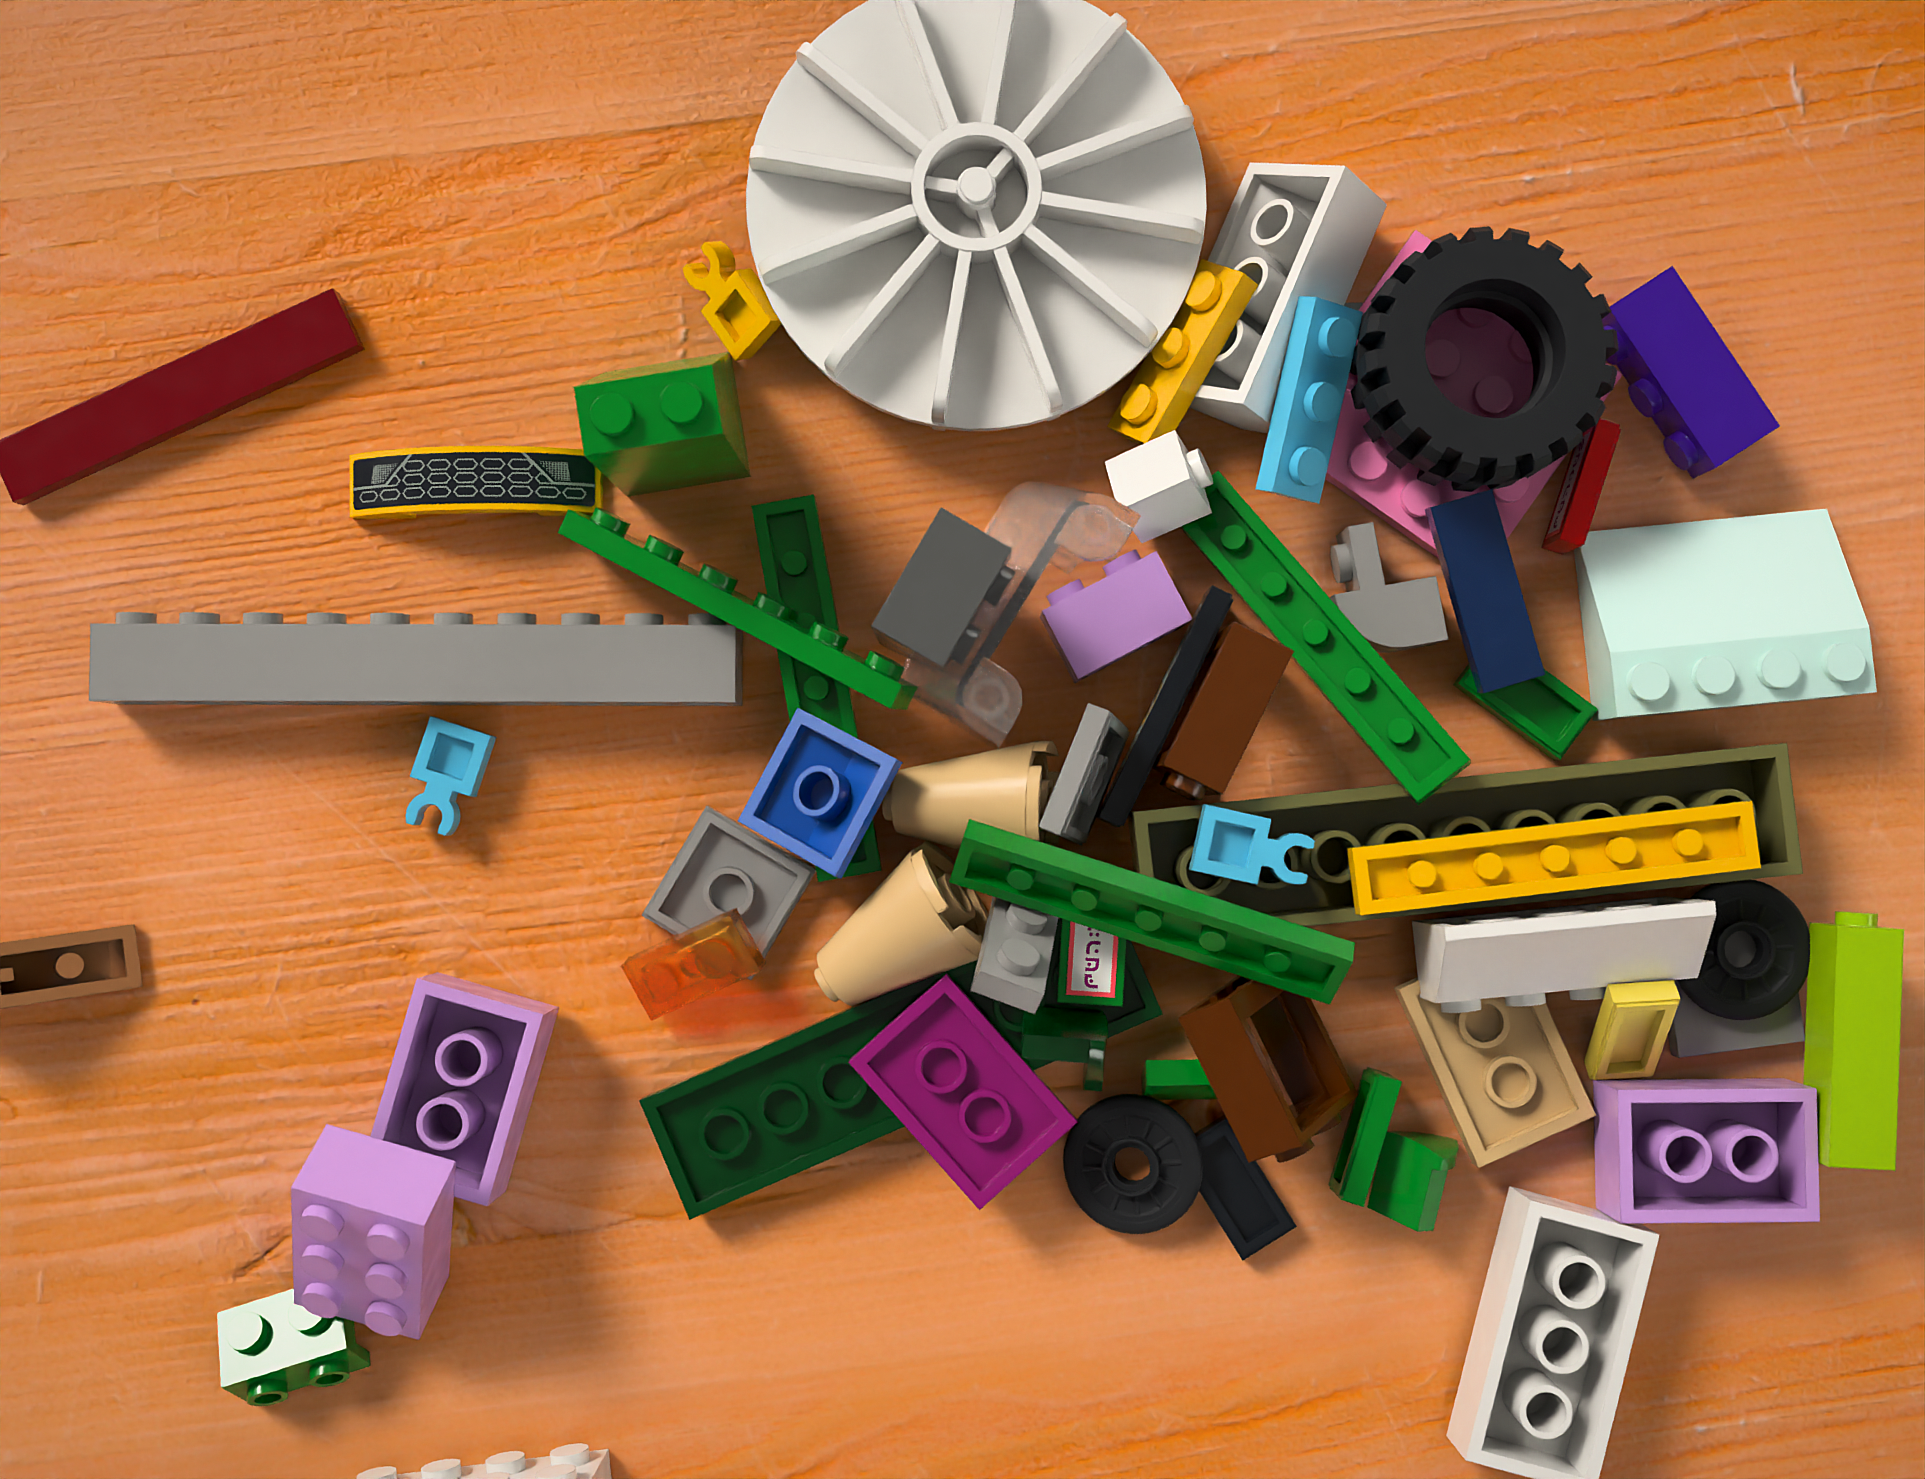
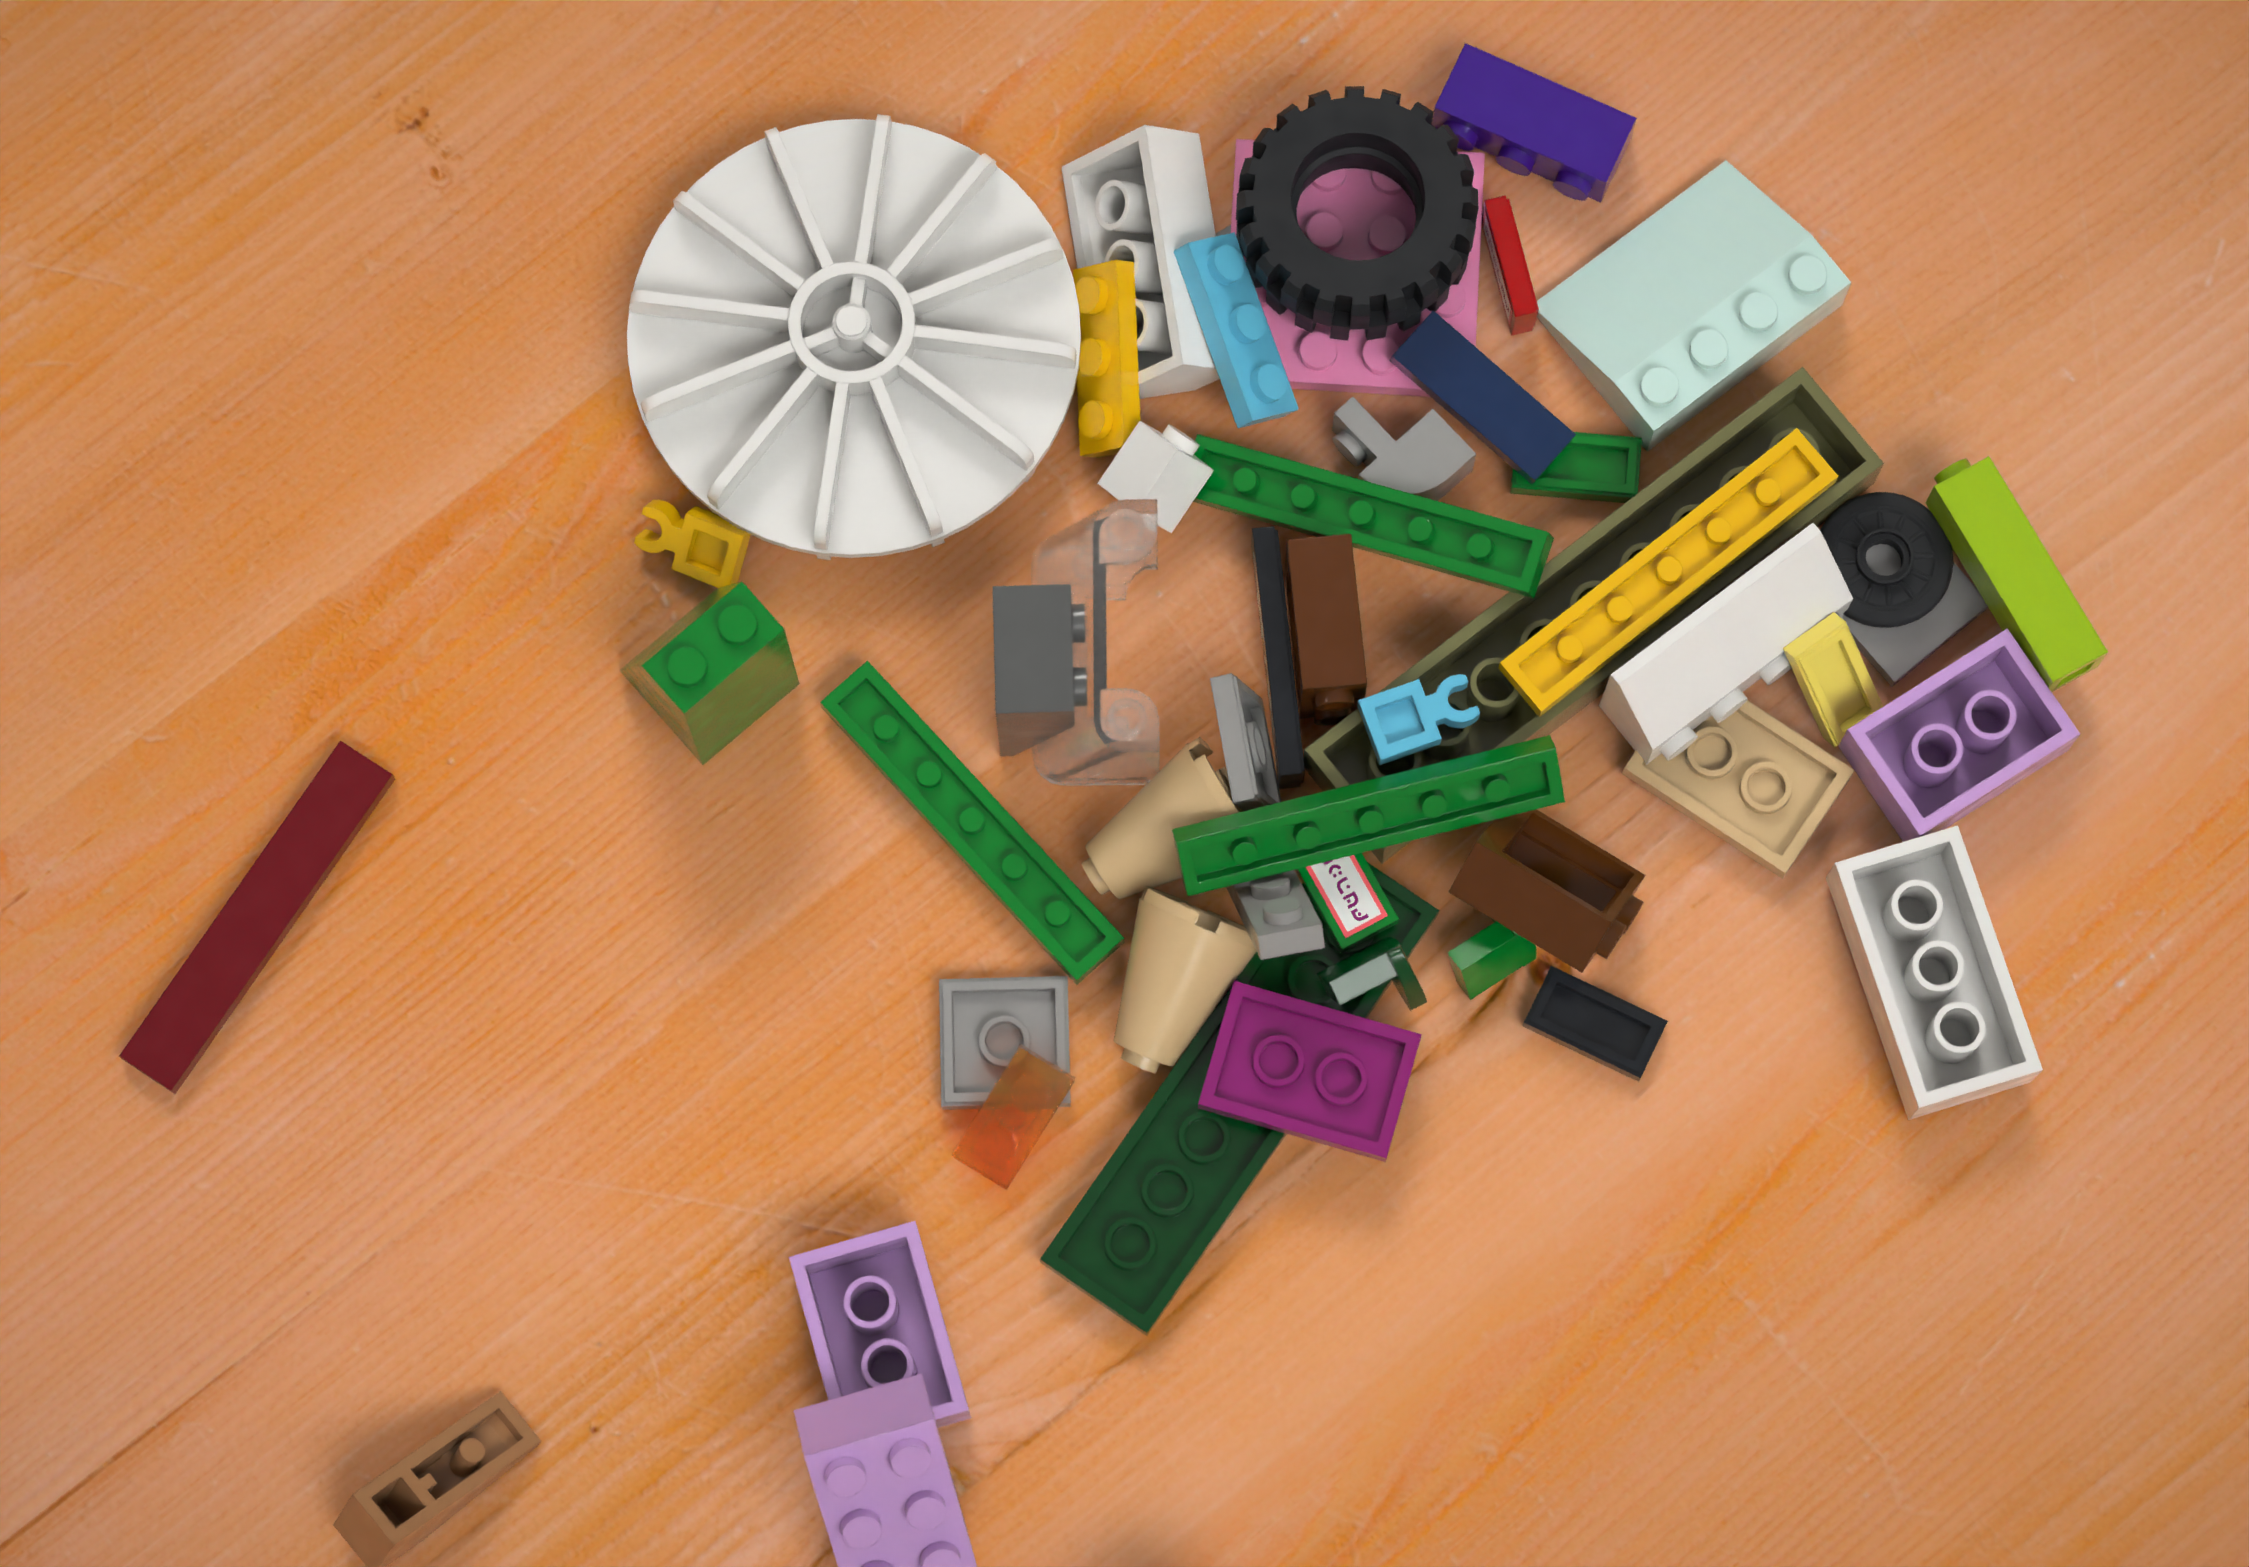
camera: 35 degrees left, 10 degrees down
(416, 662) = (615, 1009): light grey brick -> none
(451, 763) = (694, 1079): medium azure plate -> none
(473, 481) = (562, 830): slope -> none
(762, 618) = (837, 789): green plate -> none
(819, 792) = (1031, 898): blue slope -> none
(1113, 615) = (1186, 607): lavender brick -> none
(1162, 1136) = (1536, 1047): black wheel -> none
(1364, 1136) = (1673, 907): green tile -> none
(1412, 1177) = (1734, 918): green tile -> none

